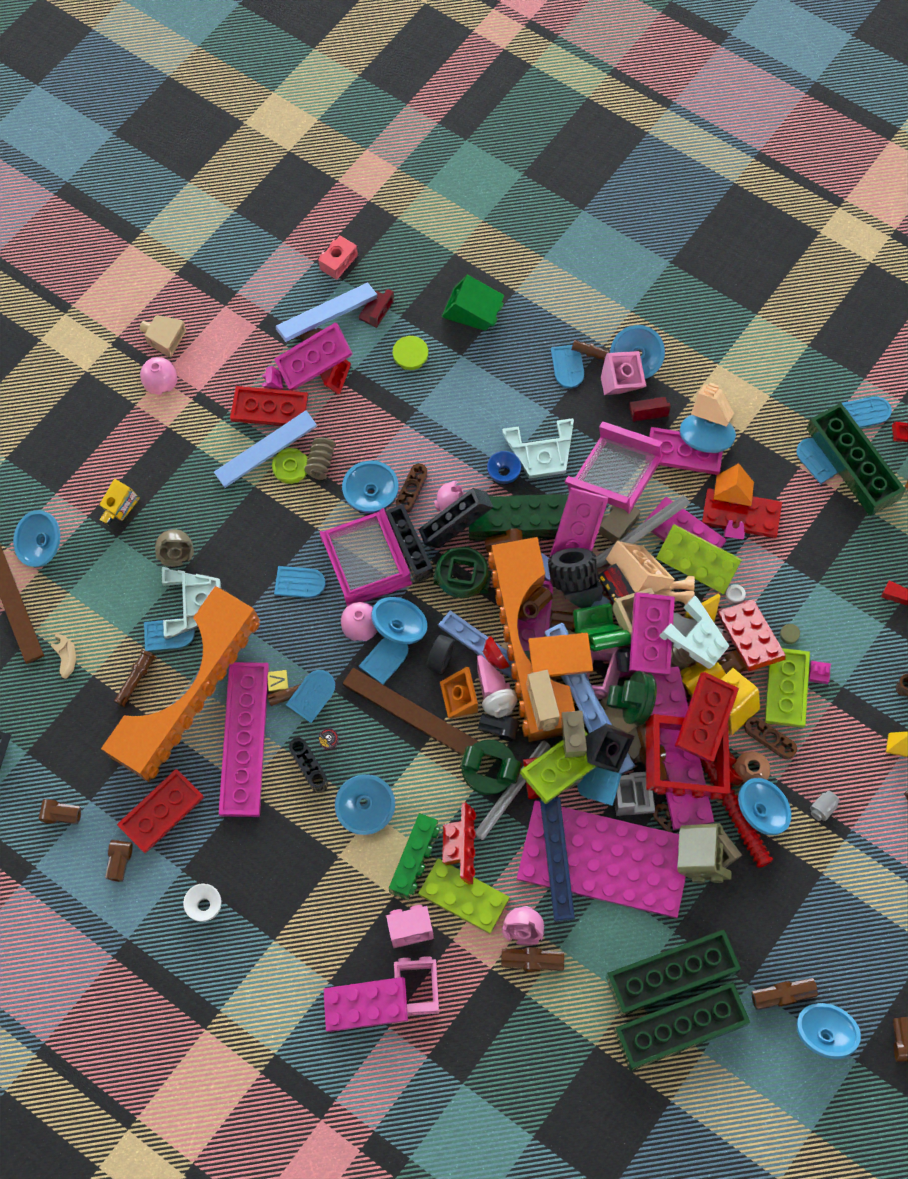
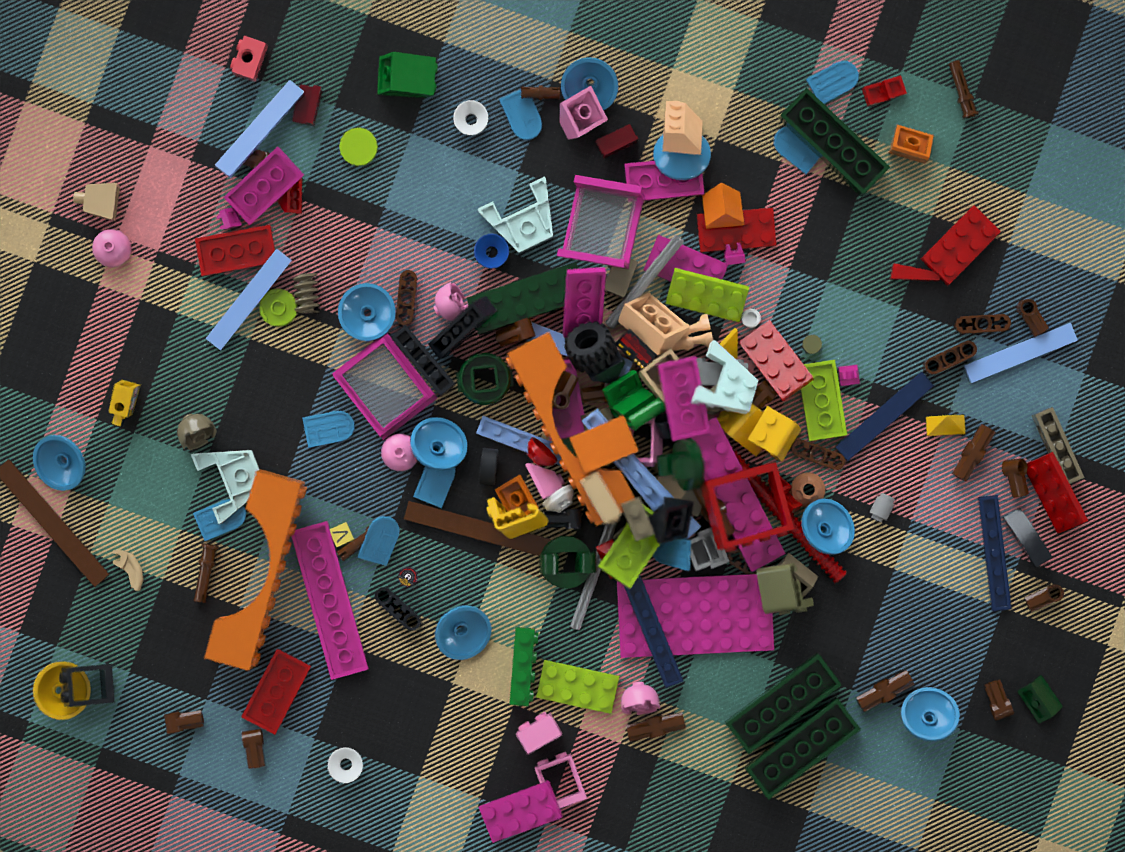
camera: 20 degrees left, 20 degrees up
(451, 710) = (516, 521): none -> yellow piece
(459, 843) = (560, 642): red bracket -> none
(520, 346) = (466, 108): none -> white piece
(707, 717) = (755, 467): red plate -> none
(846, 720) = (884, 416): none -> dark blue tile

